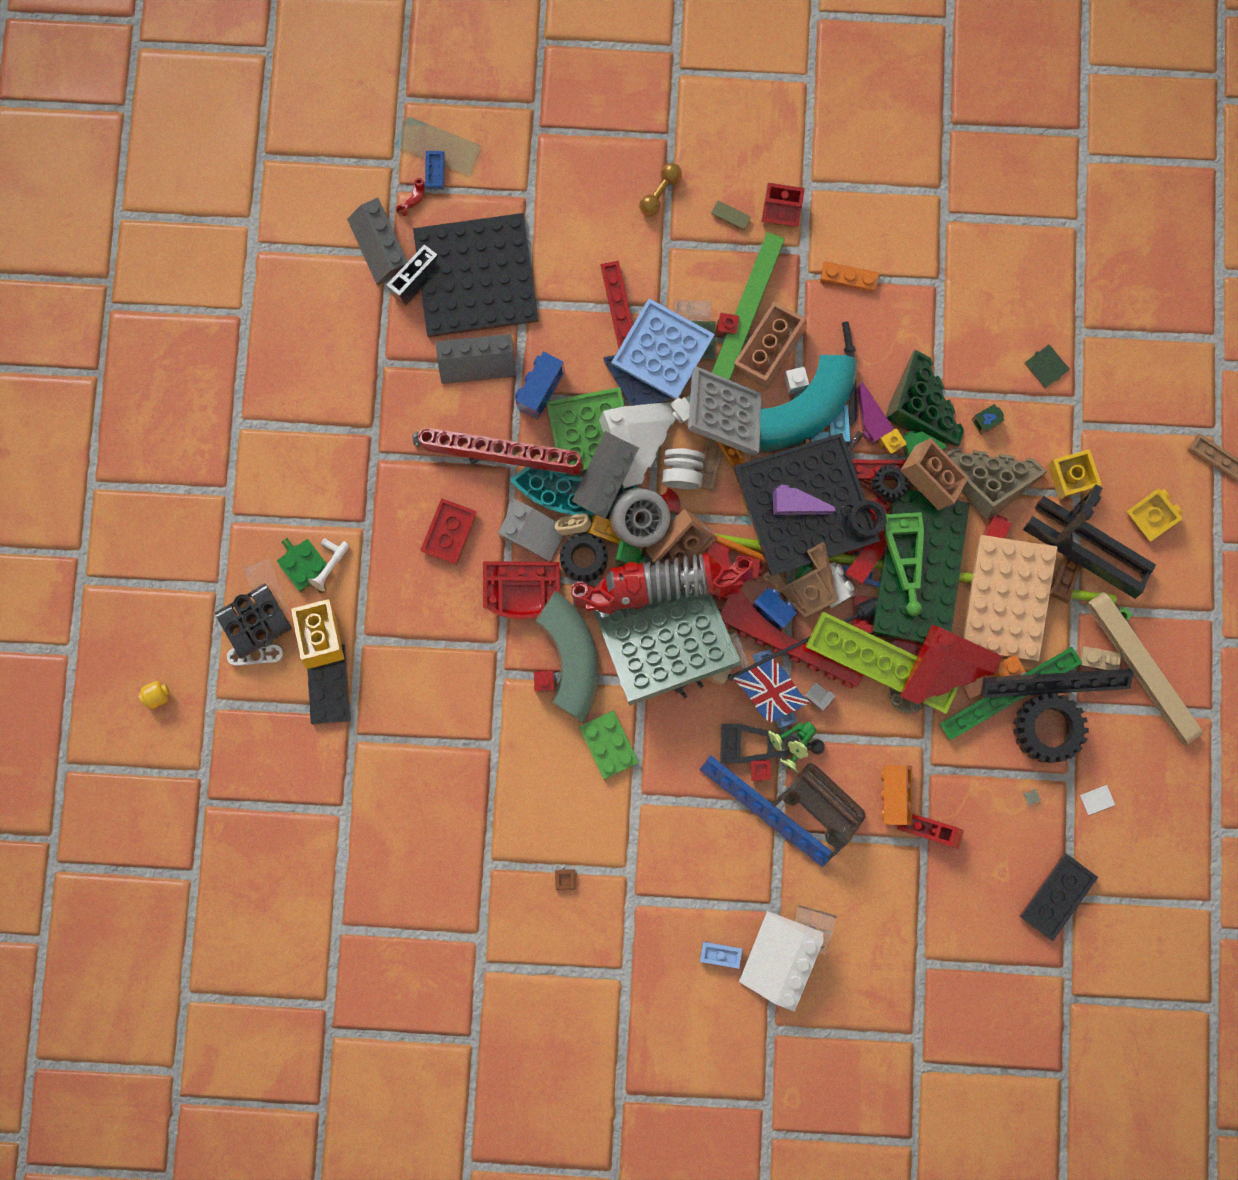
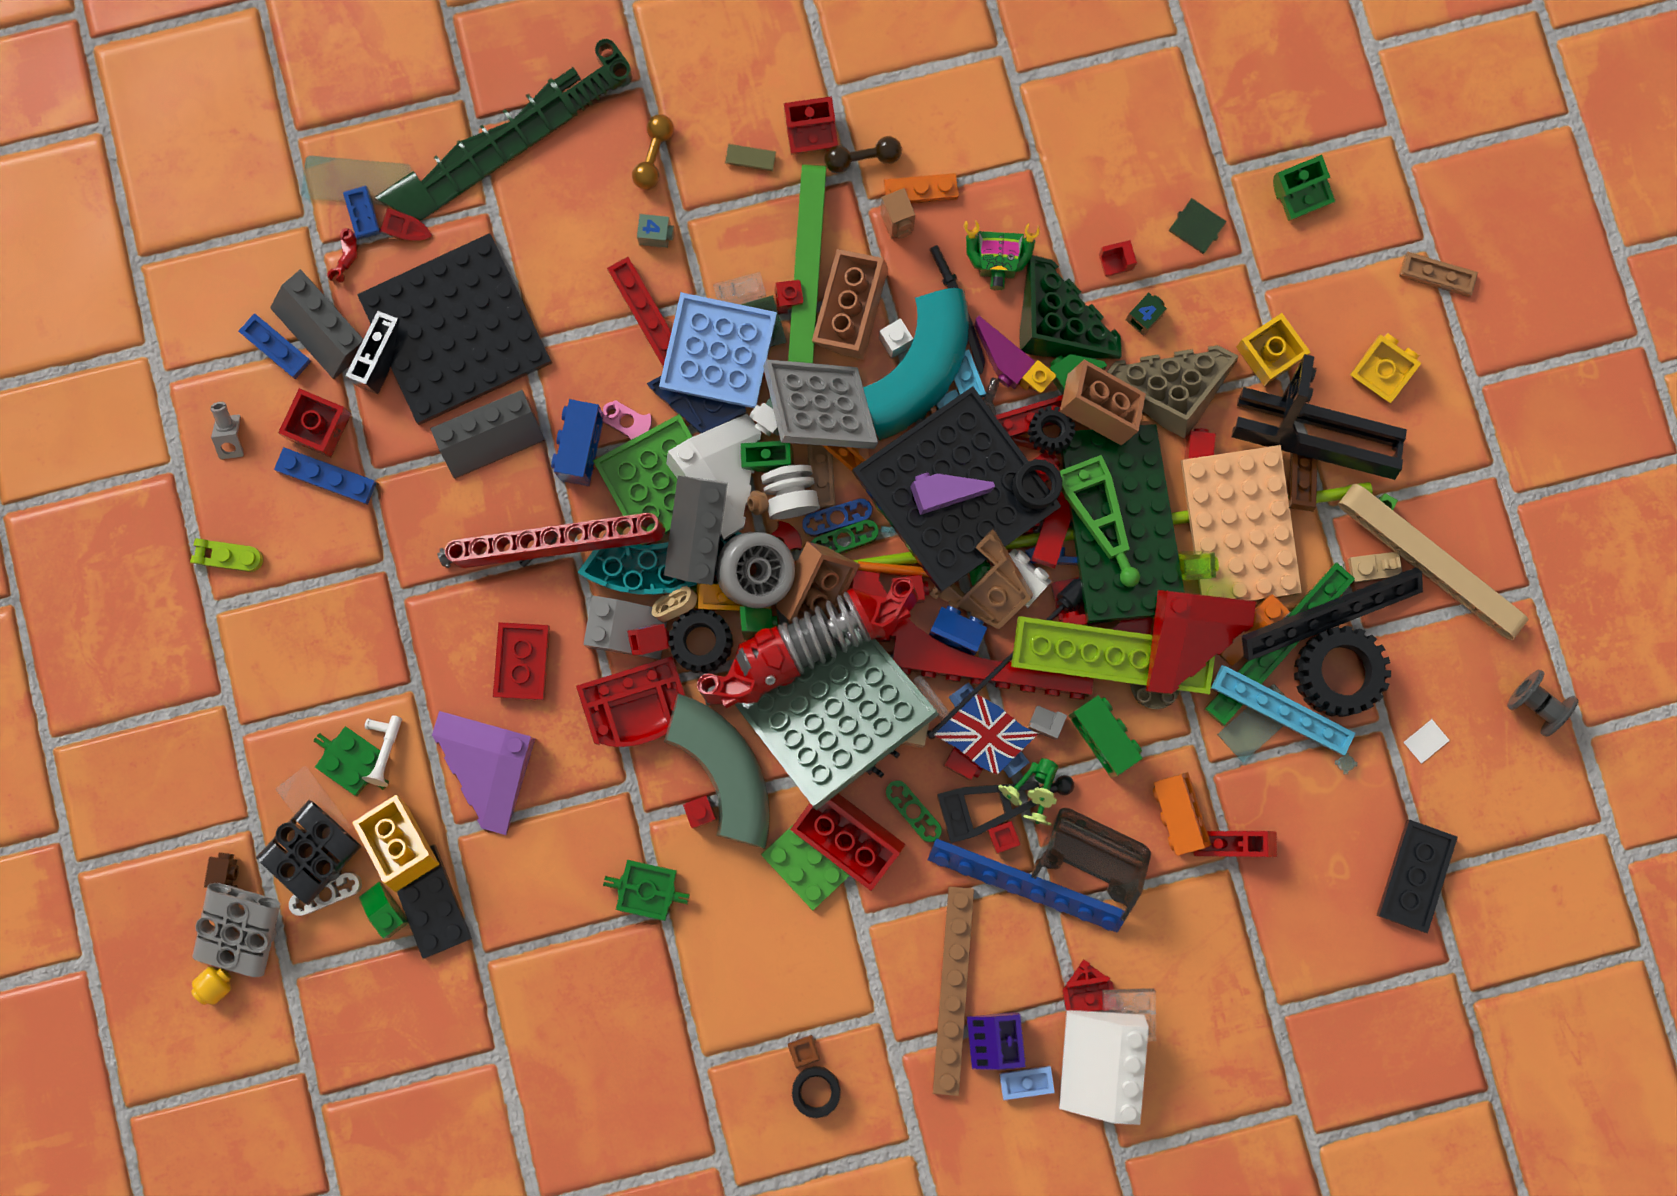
camera: 20 degrees left, 0 degrees up
(166, 664) = (248, 949): none -> light grey connector
(186, 615) = (222, 870): none -> reddish brown brick
(260, 389) = (227, 556): none -> lime plate
(287, 298) = (225, 431): none -> light grey bracket
(293, 680) = (383, 911): none -> green slope
(342, 247) = (274, 346): none -> blue plate
(349, 353) = (325, 476): none -> blue plate
(353, 312) = (314, 423): none -> red brick
(400, 597) = (487, 764): none -> medium lavender slope
(462, 189) = (404, 226): none -> red plate
(487, 725) = (646, 890): none -> green plate
(541, 152) = (487, 151): none -> dark green piece
(546, 544) = (648, 639): none -> red brick
(550, 908) = (835, 1094): none -> black tyre
(589, 386) = (641, 423): none -> bright pink piece
(643, 247) = (654, 230): none -> sand green brick
(646, 735) = (849, 839): none -> red slope
(657, 469) = (758, 502): none -> medium nougat plate
(674, 437) = (766, 455): none -> green slope
(688, 870) = (953, 991): none -> medium nougat plate
(692, 728) = (895, 801): none -> green beam
(706, 492) = (817, 516): none -> blue beam
(708, 917) = (996, 1041): none -> dark purple slope
(726, 521) = (859, 528): none -> green beam
(746, 708) = (962, 765): none -> red brick
(786, 900) = (1086, 989): none -> red slope
(826, 289) = (897, 214): none -> medium nougat brick
(833, 240) = (839, 158): none -> dark brown piece
(859, 719) = (1106, 736): none -> green brick
(892, 341) = (999, 253): none -> torso
(967, 615) = (1198, 564): none -> clear neon green slope
(975, 746) = (1249, 731): none -> clear light blue piece
(979, 372) = (1117, 258): none -> red panel
(997, 742) = (1283, 710): none -> medium azure plate
(1135, 361) = (1303, 187): none -> green brick
(1193, 798) = (1542, 703): none -> dark grey hose

